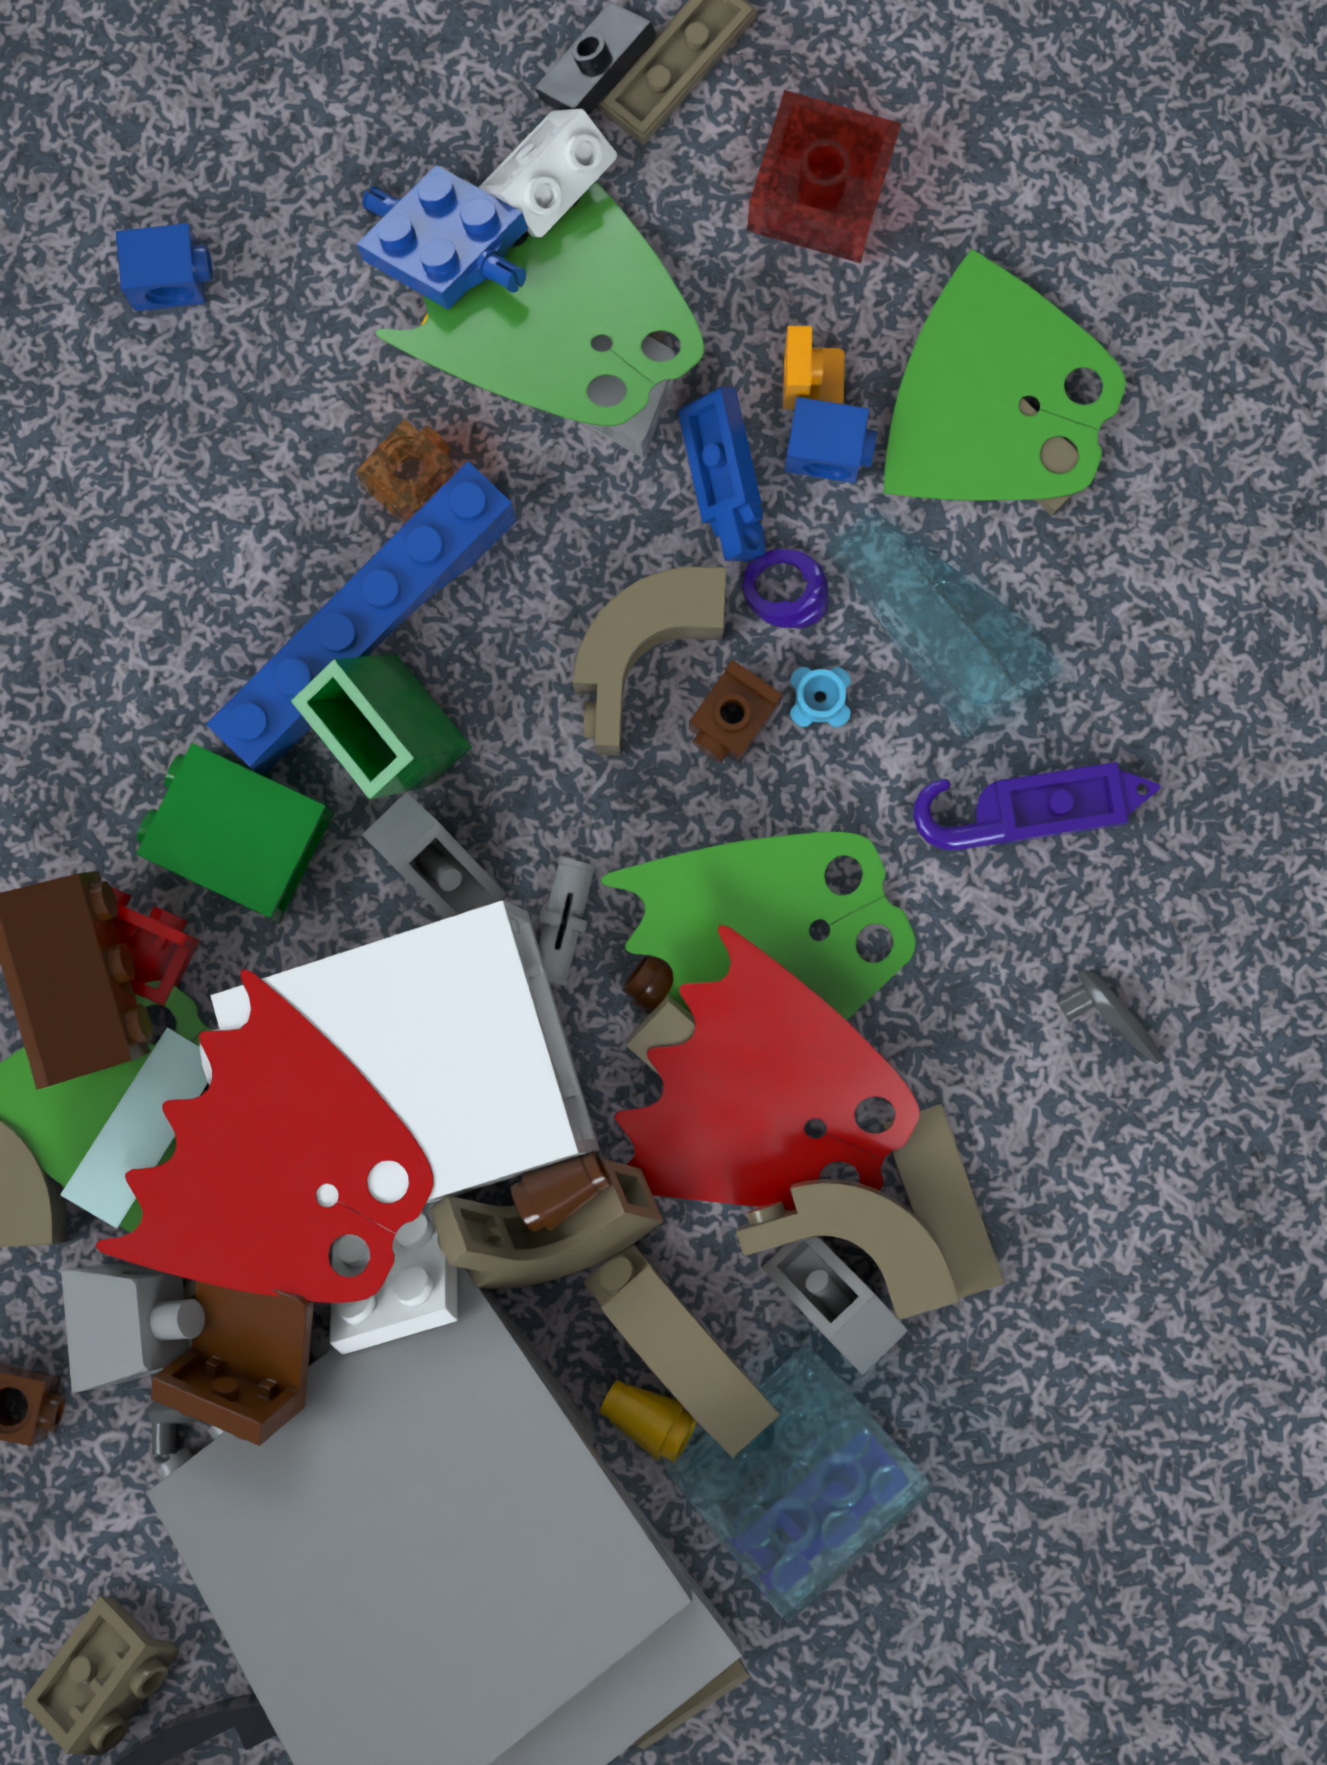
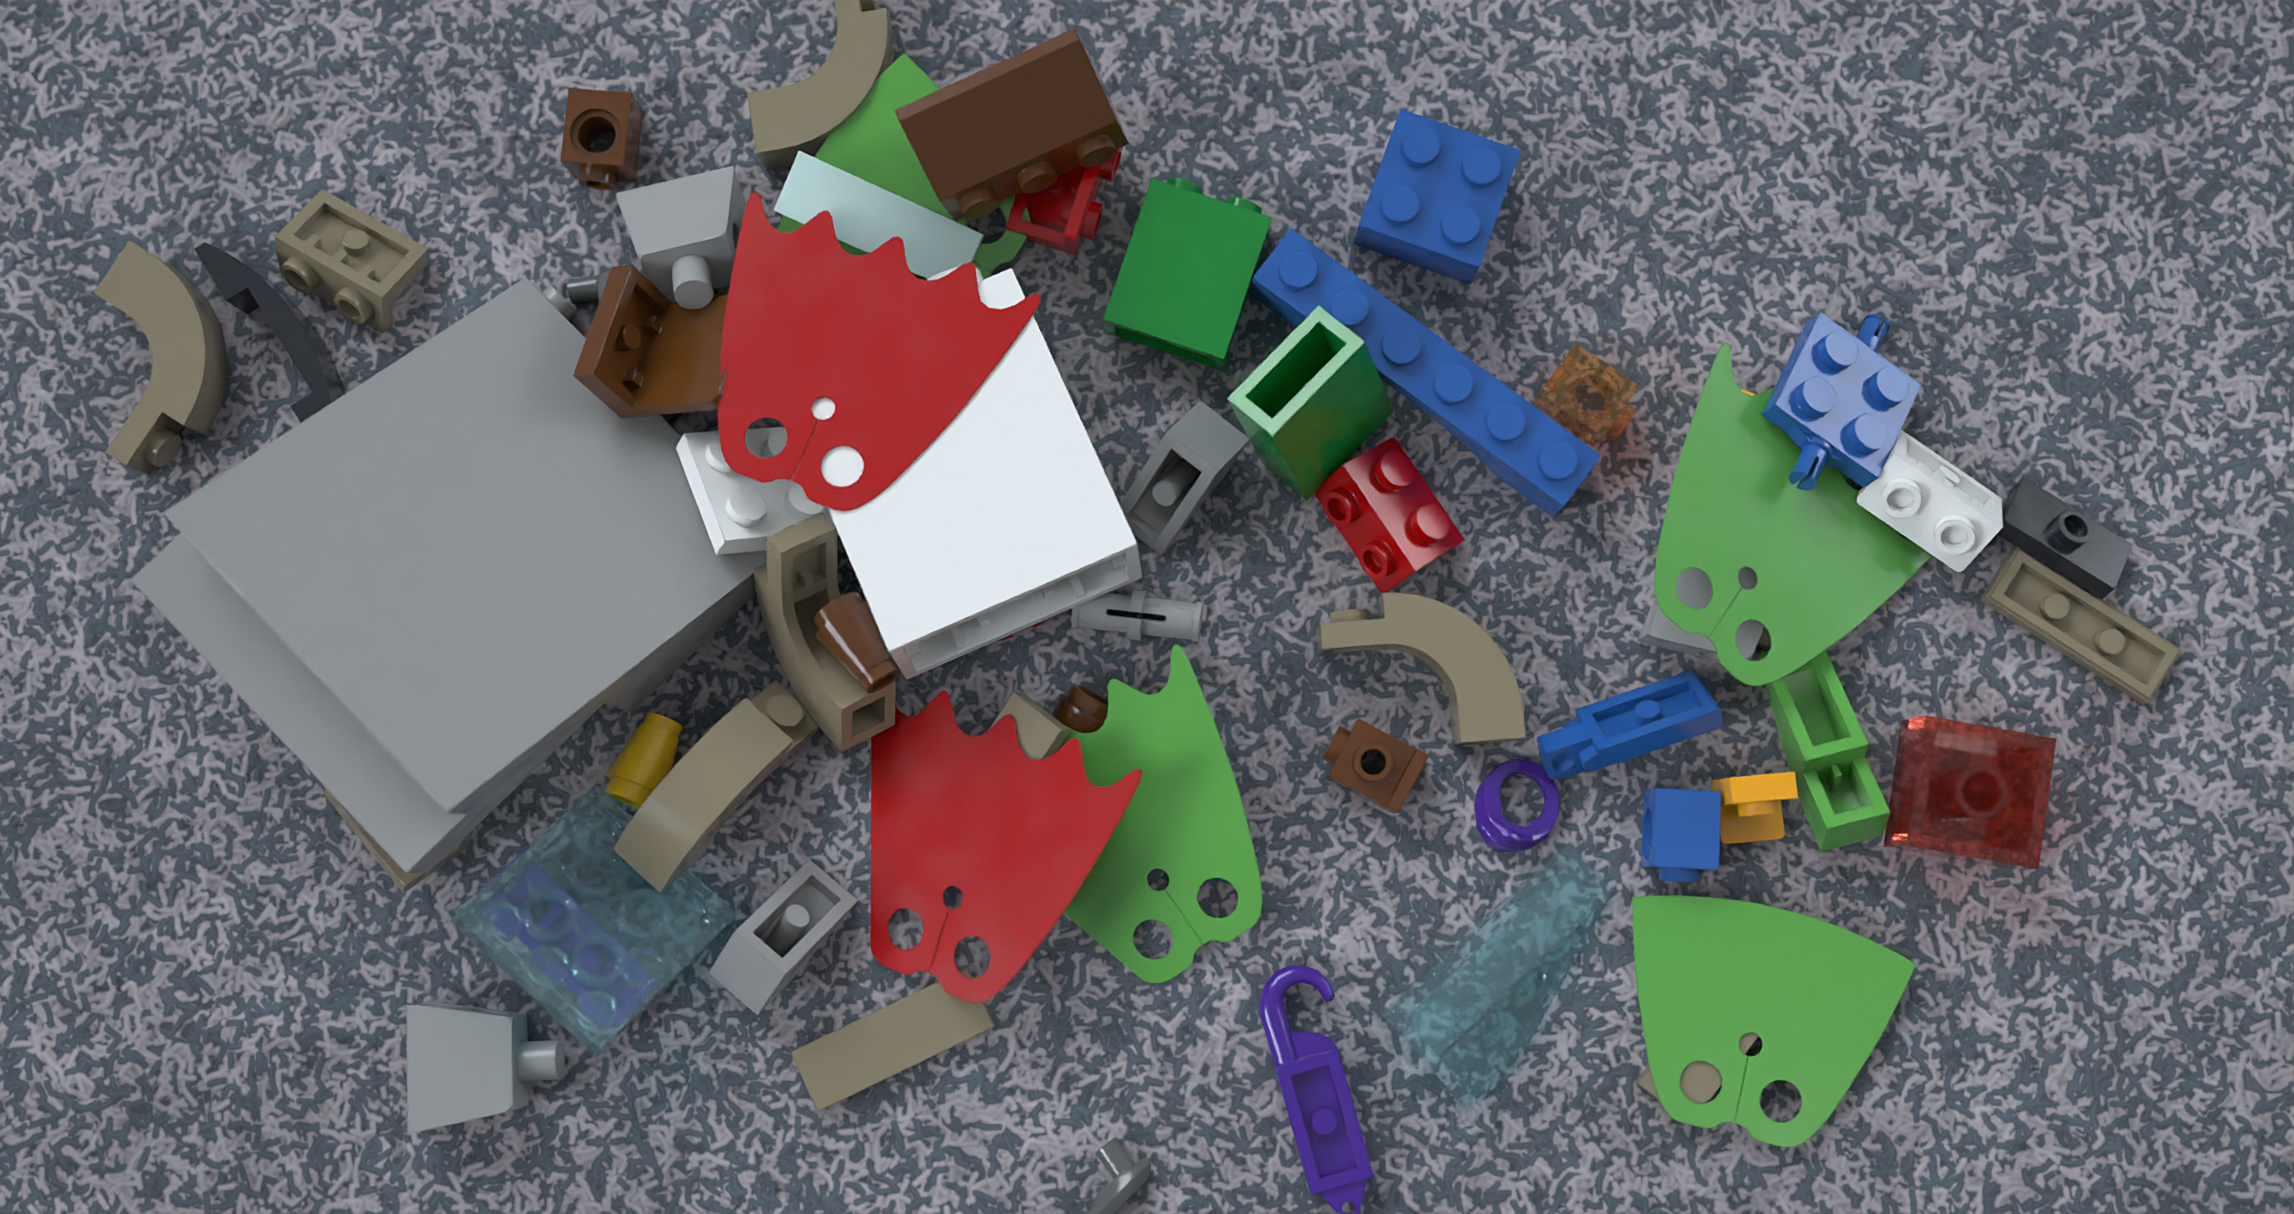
camera: 85 degrees right, 0 degrees up
(163, 266) = (1767, 120): blue brick -> none
(192, 584) = (1436, 197): none -> blue brick
(496, 672) = (1387, 514): none -> red bracket
(768, 297) = (1827, 755): none -> bright green slope
(832, 684) = (1418, 867): medium azure plate -> none
(873, 1221) = (863, 965): dark tan arch -> none
(925, 1621) = (471, 1063): none -> light grey torso

